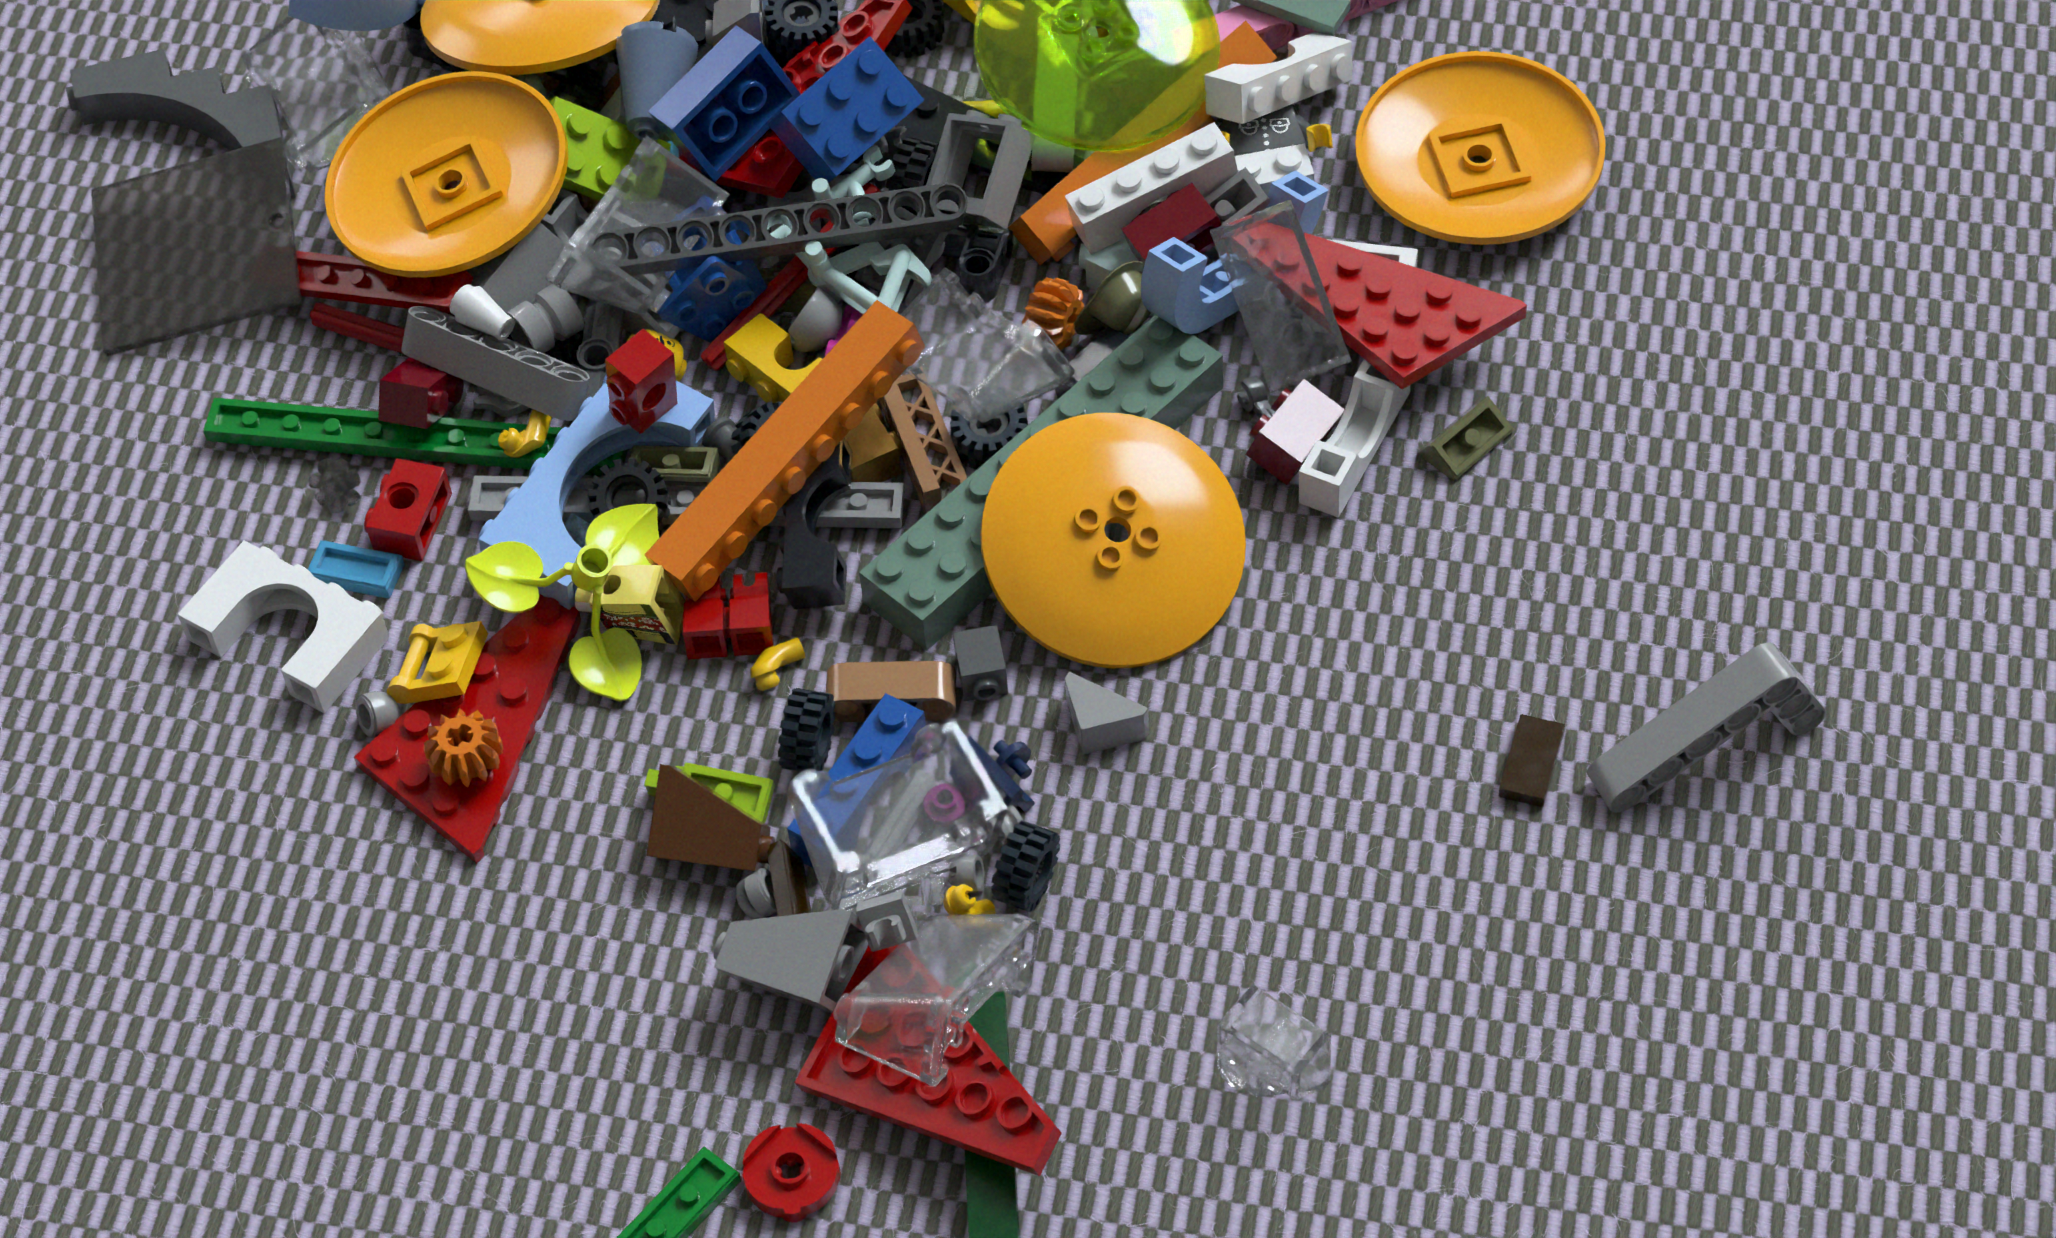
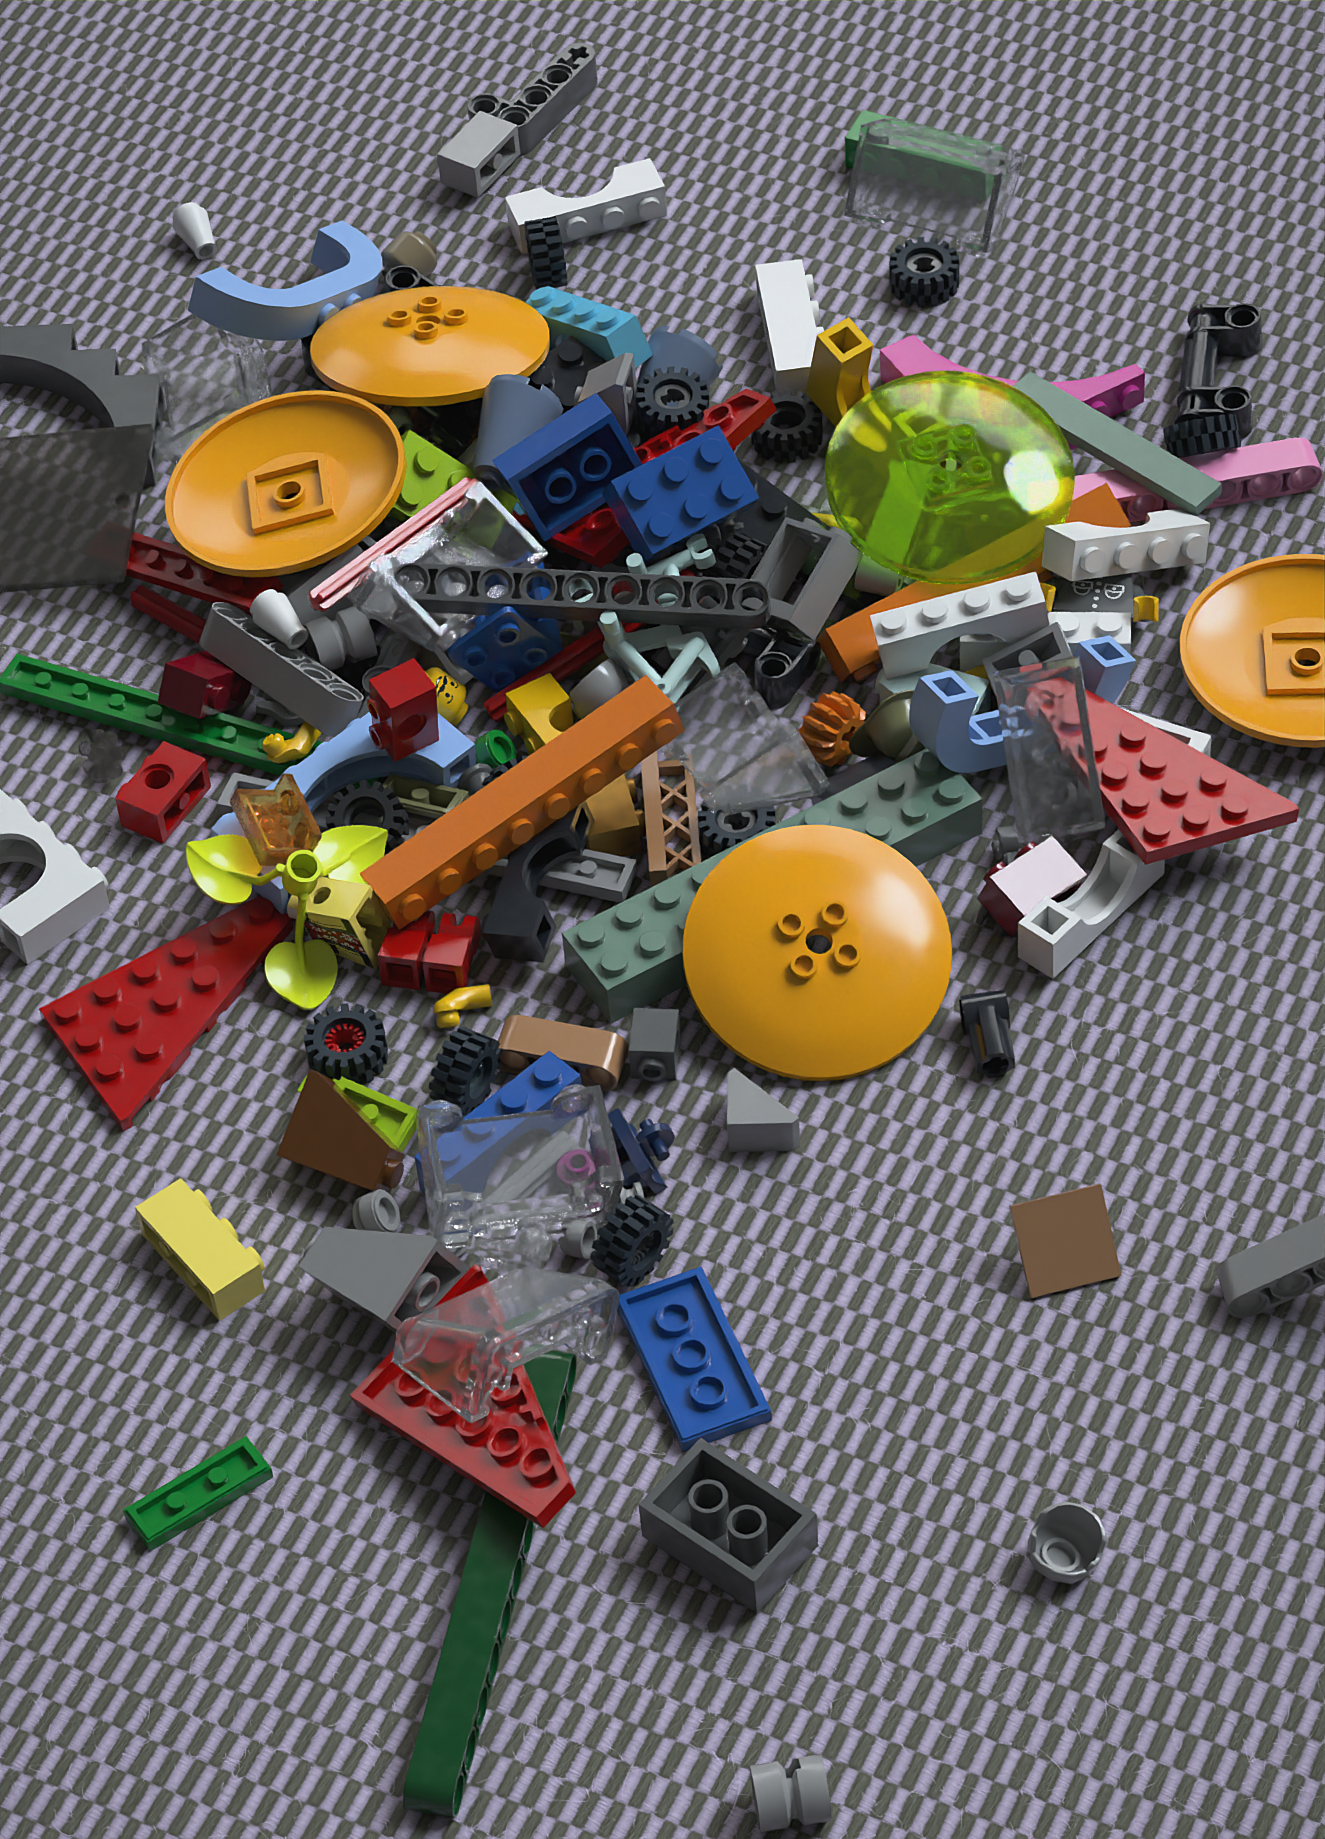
camera: 15 degrees right, 5 degrees down
(357, 568) = (99, 837): dark azure tile -> none
(376, 712) = (73, 971): light grey piece -> none
(449, 667) = (156, 938): yellow plate -> none
(463, 747) = (137, 1019): orange gear -> none
(547, 520) = (276, 821): none -> clear orange bracket
(573, 216) = (343, 581): none -> axle
(598, 966) = (201, 1248): none -> light yellow brick
(675, 709) = (346, 1027): none -> black bush
(729, 401) = (494, 749): none -> green tile
(788, 880) = (404, 1203): dark brown tile -> none
(794, 1196) = (325, 1500): red plate -> none
(886, 921) = (475, 1259): light grey tile -> none
(958, 903) = (555, 1259): yellow arm -> none
(1117, 970) = (692, 1359): none -> blue tile
(1181, 216) = (972, 660): dark red brick -> none
(1210, 1128) = (728, 1525): none -> dark grey brick
(1272, 1048) = (812, 1460): clear slope -> none
(1292, 573) = (987, 1023): none -> black piece
(1438, 774) = (1065, 1240): none -> medium nougat piece
(1467, 439) = (1206, 929): olive slope -> none
(1531, 760) = (1167, 1249): dark brown tile -> none
(1535, 1071) = (1066, 1542): none -> light grey hair

